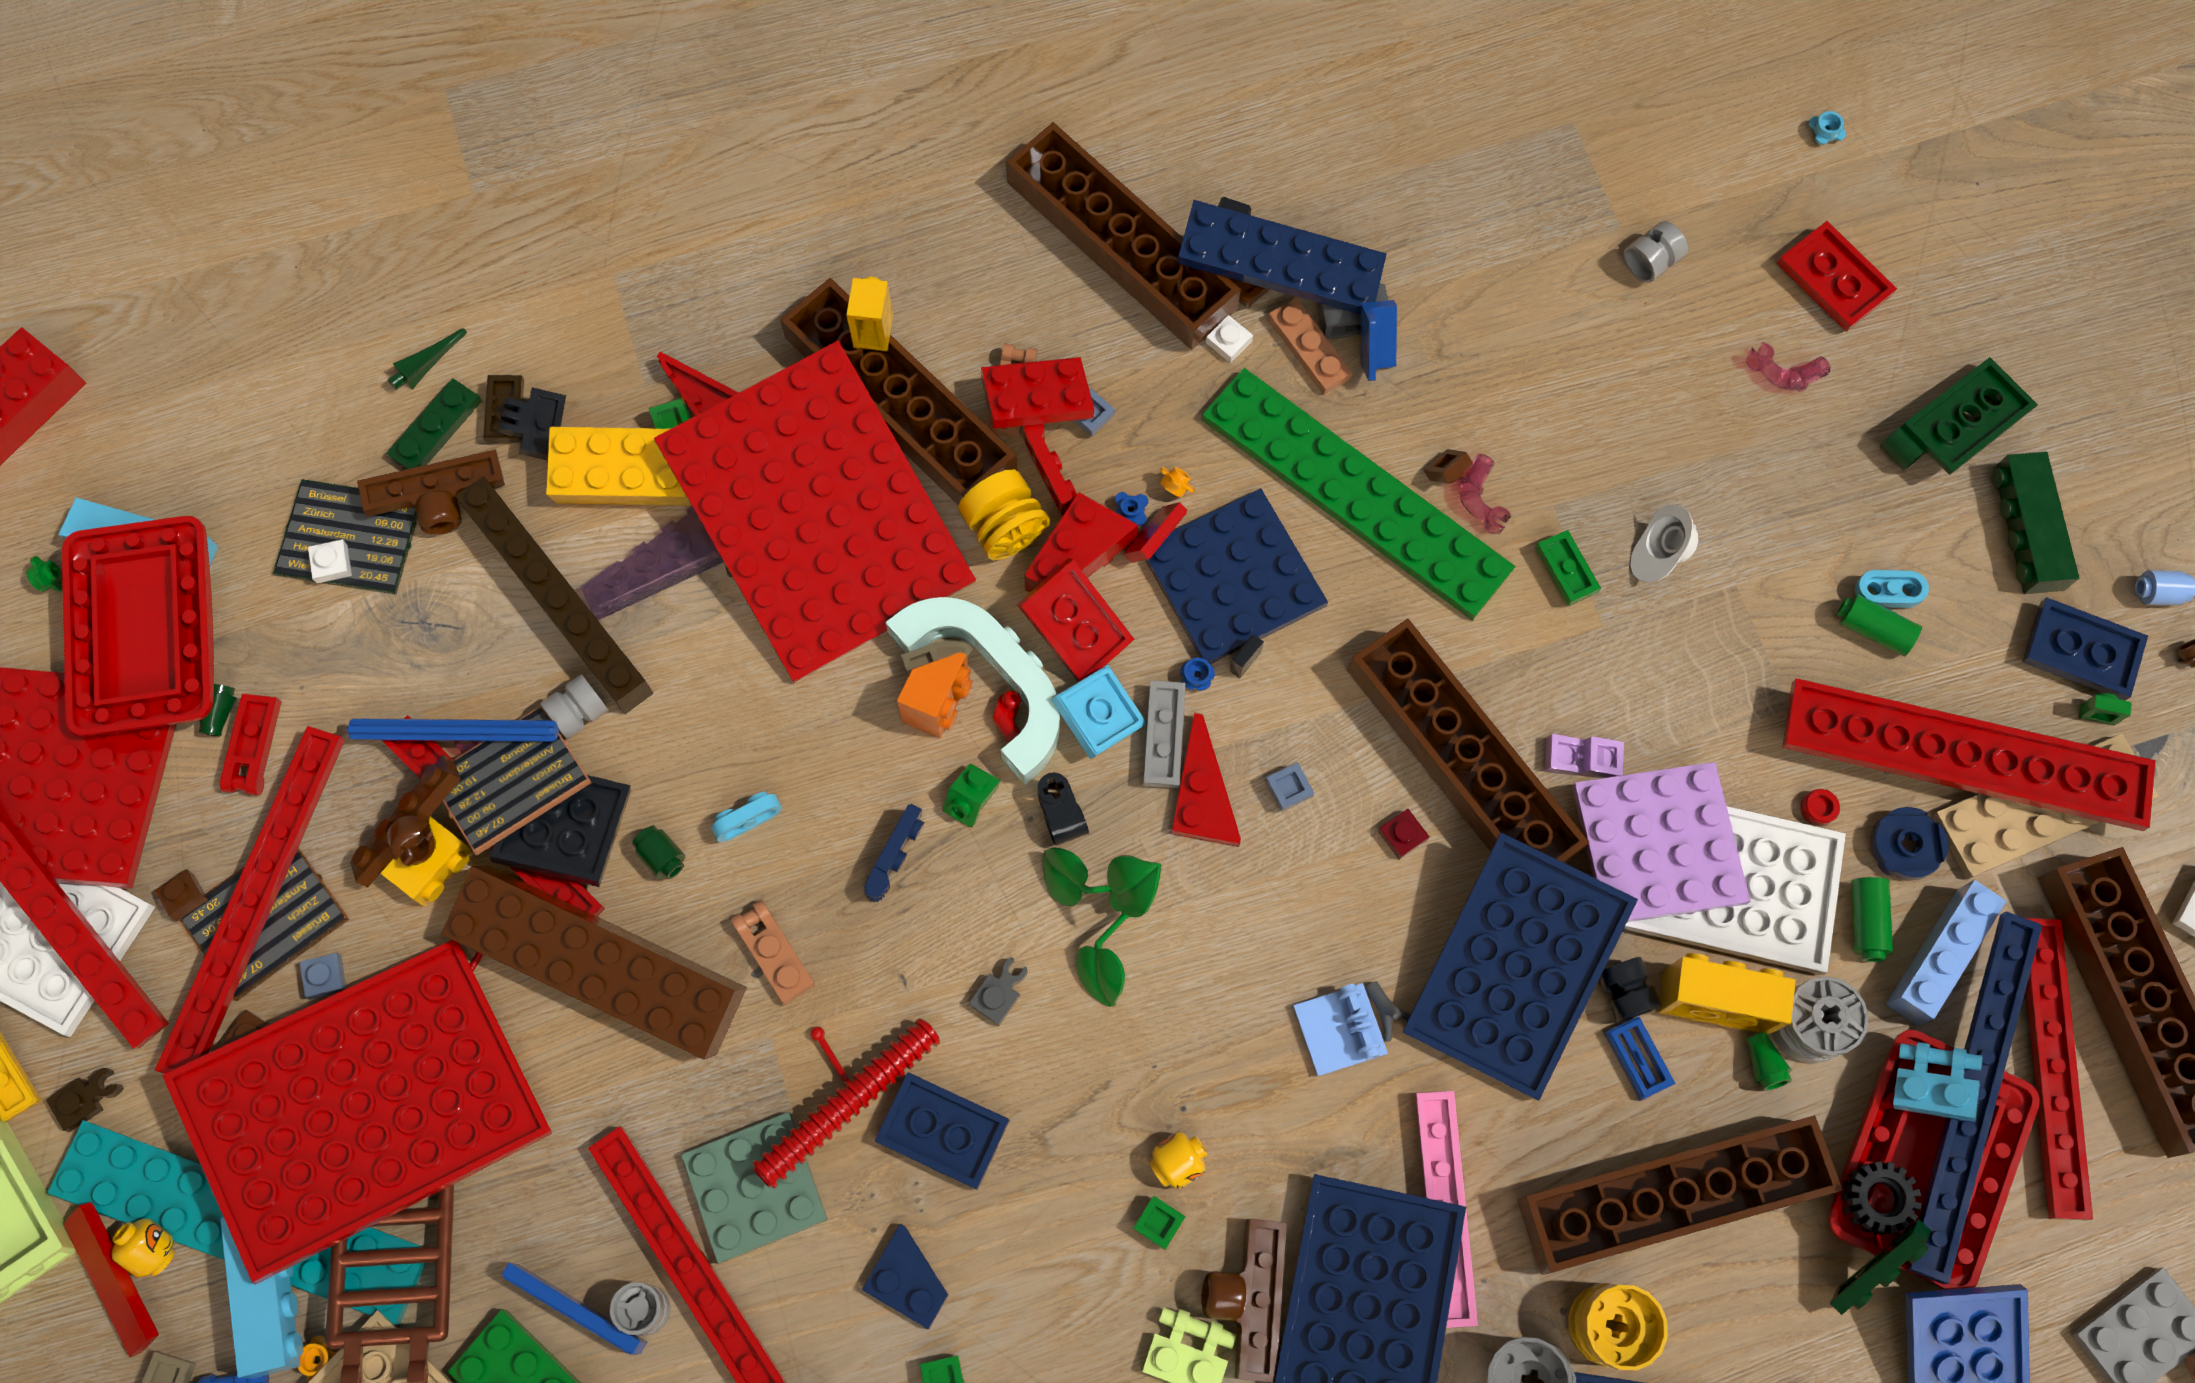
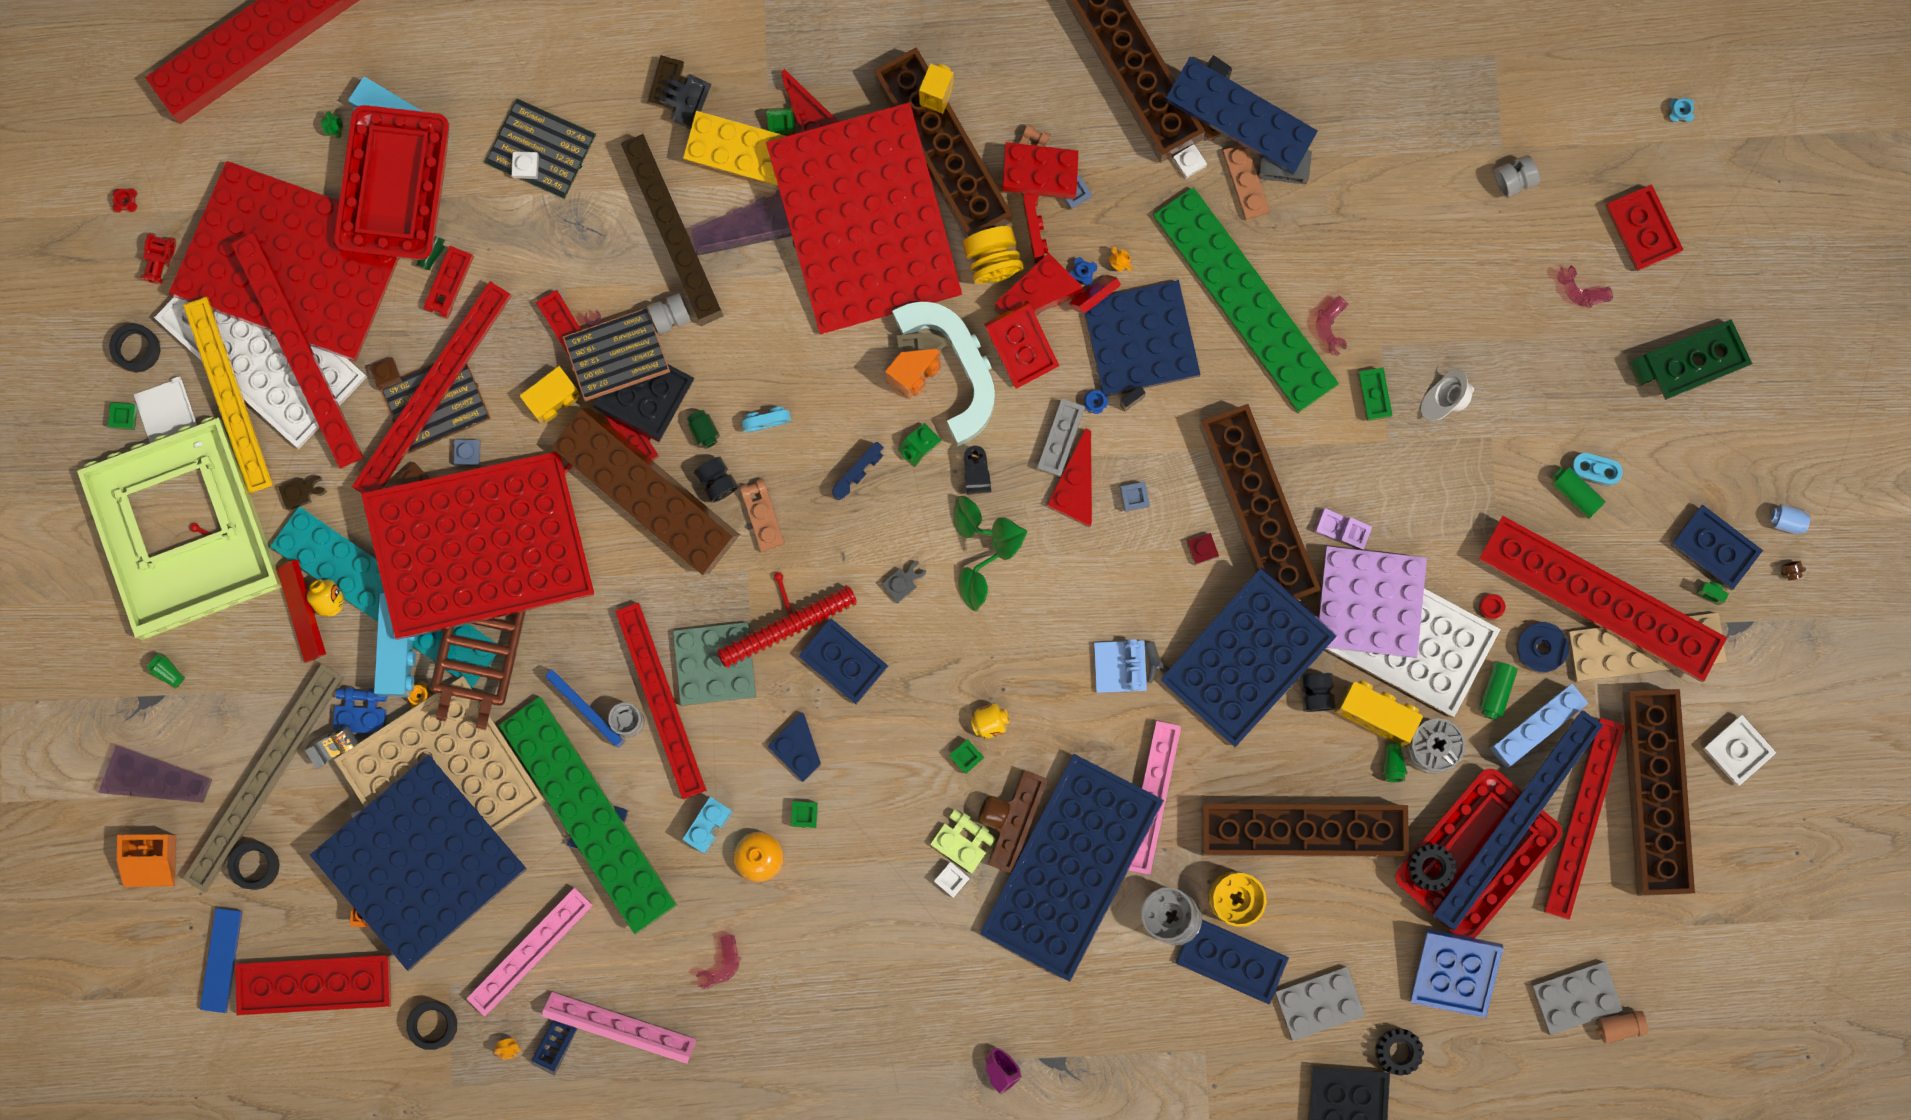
camera: 20 degrees right, 10 degrees up
(408, 828) = (543, 369): reddish brown plate -> none
(415, 367) = (610, 34): dark green piece -> none
(430, 490) = (604, 131): reddish brown plate -> none
(434, 426) = (615, 82): dark green plate -> none
(453, 730) = (586, 310): blue axle -> none
(689, 913) = (715, 478): none -> black wheel
(1005, 714) = (957, 395): red arm -> none
(1099, 711) = (1020, 411): medium azure tile -> none
(1378, 336) = (1294, 190): blue panel -> none
(1448, 466) = (1314, 299): reddish brown plate -> none
(1627, 1065) = (1315, 760): blue tile -> none
(1882, 1268) = (1416, 910): dark green plate -> none
(1937, 1093) = (1490, 812): medium azure plate -> none
(2035, 523) = (1716, 448): dark green brick -> none

